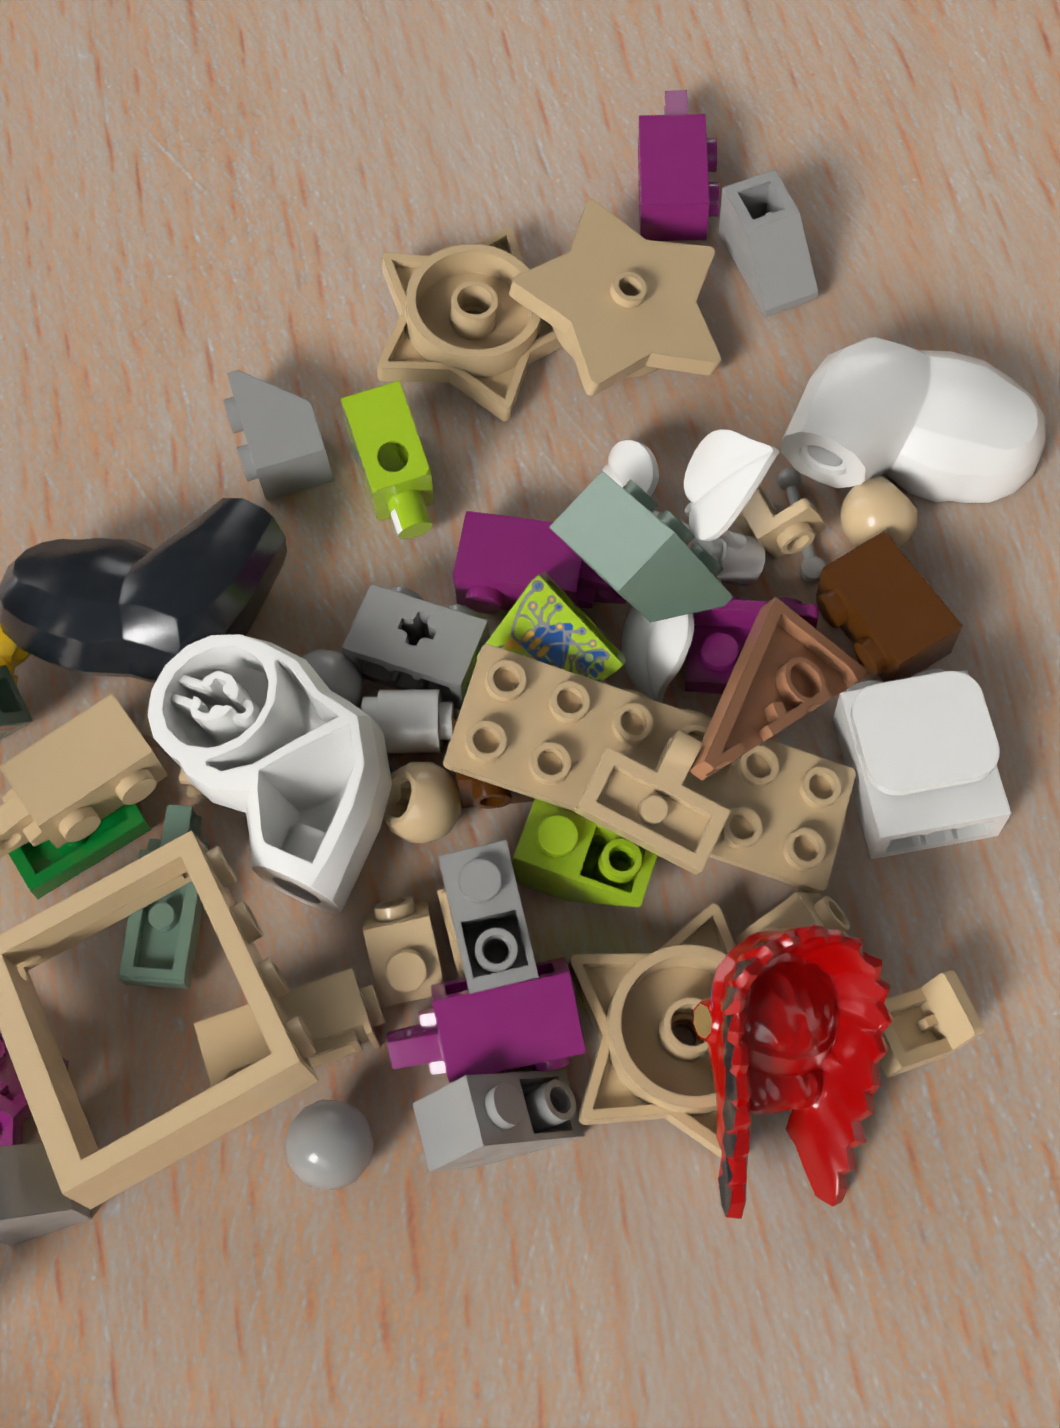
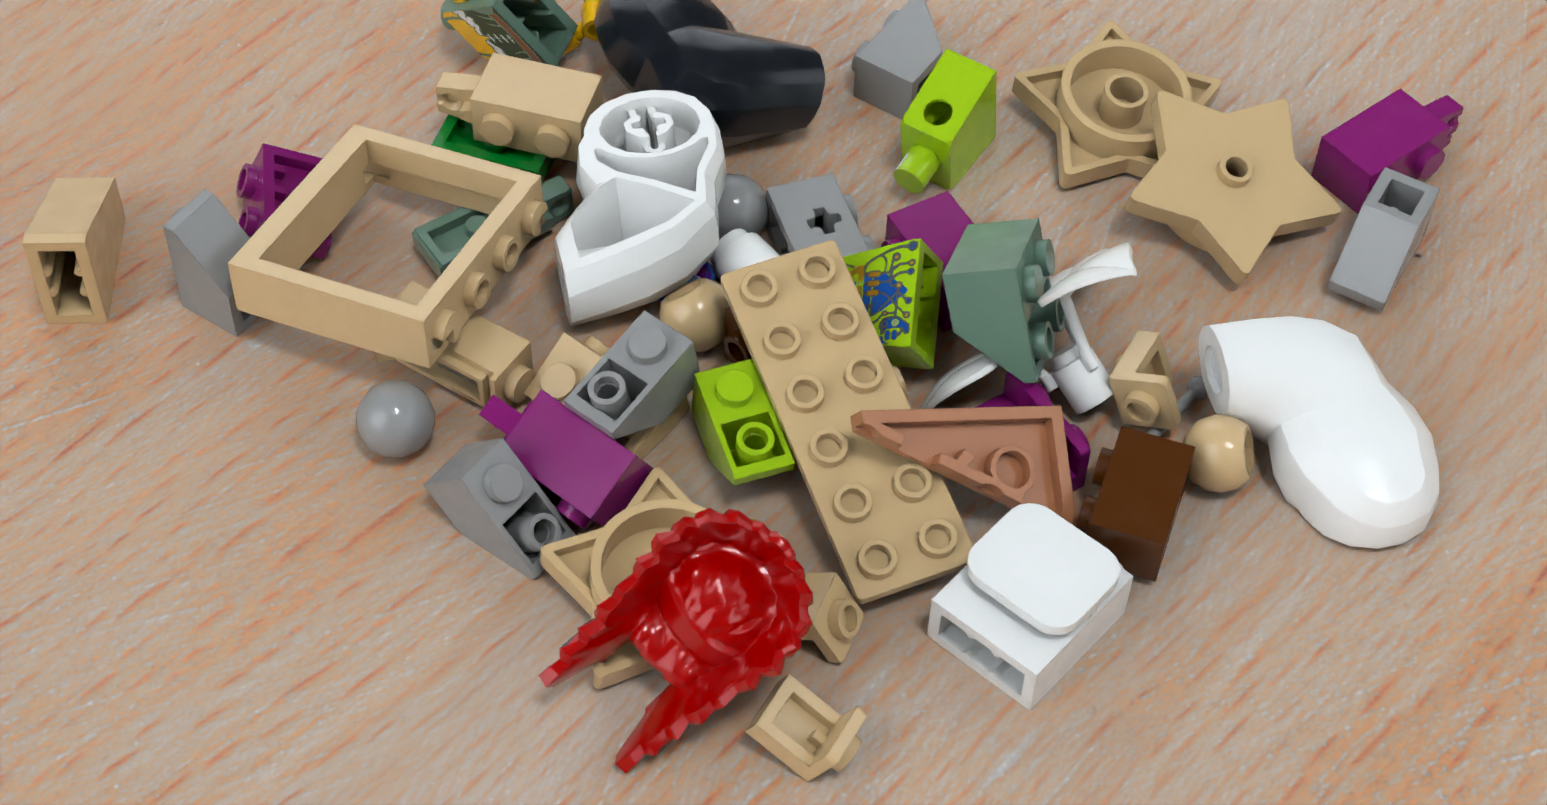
camera: 45 degrees right, 15 degrees down
(654, 805) = (806, 417): tan plate -> none

